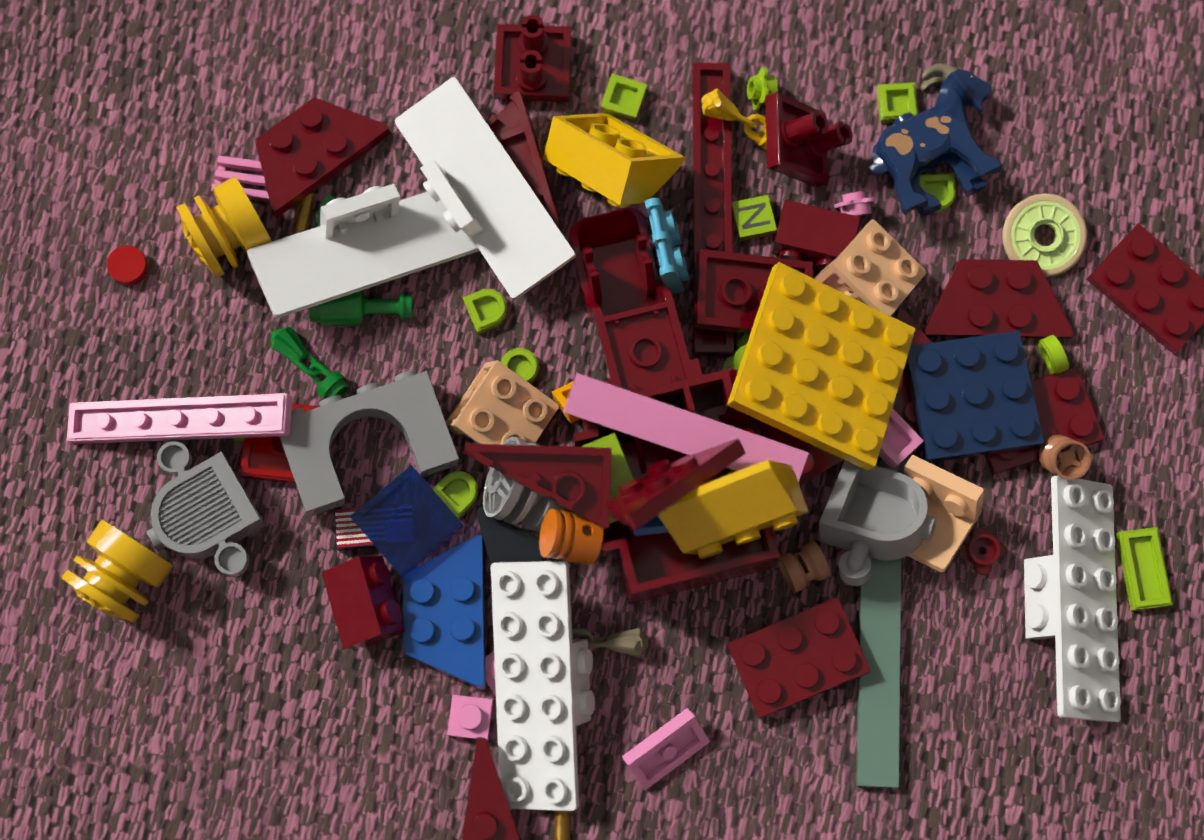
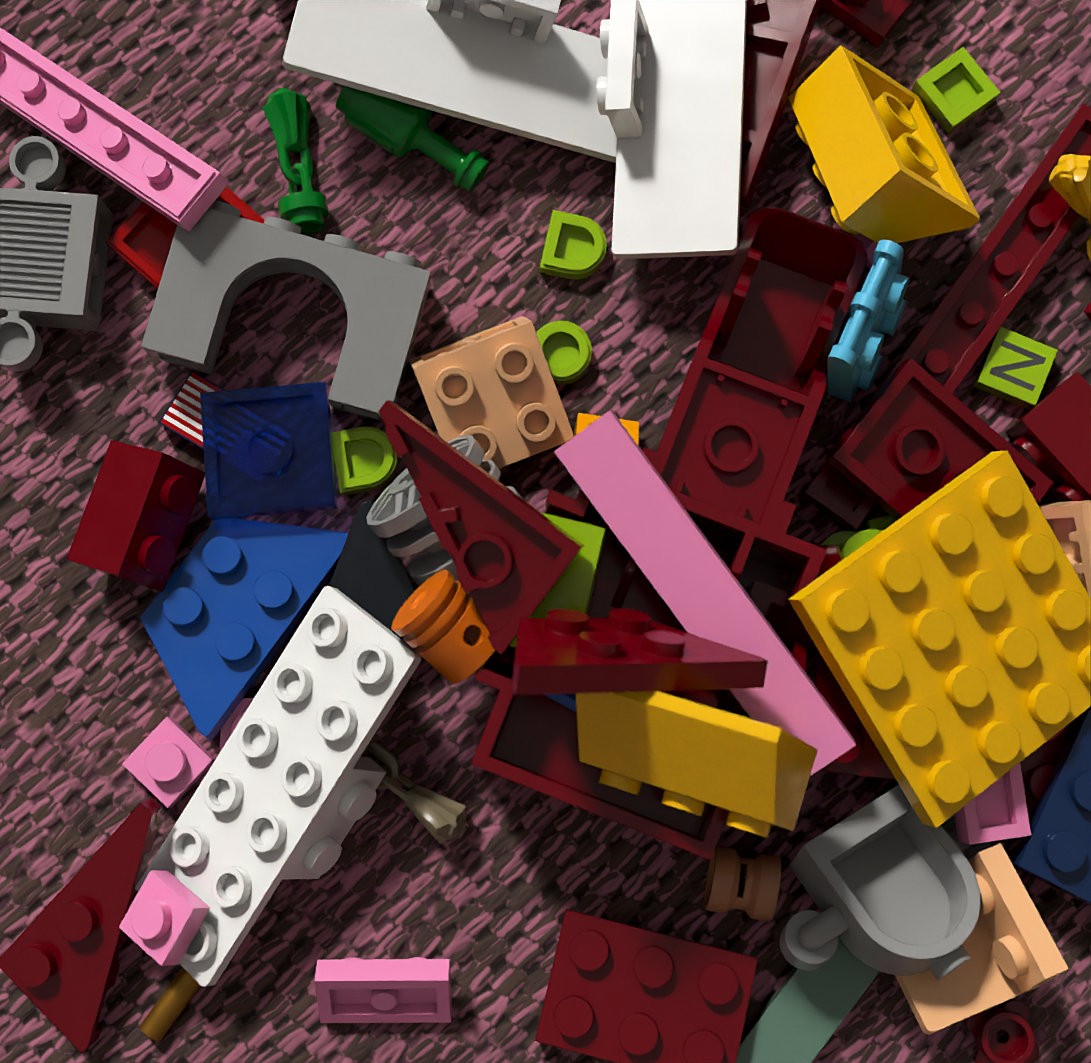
camera: 40 degrees right, 5 degrees up
(529, 789) = (164, 917): none -> bright pink plate

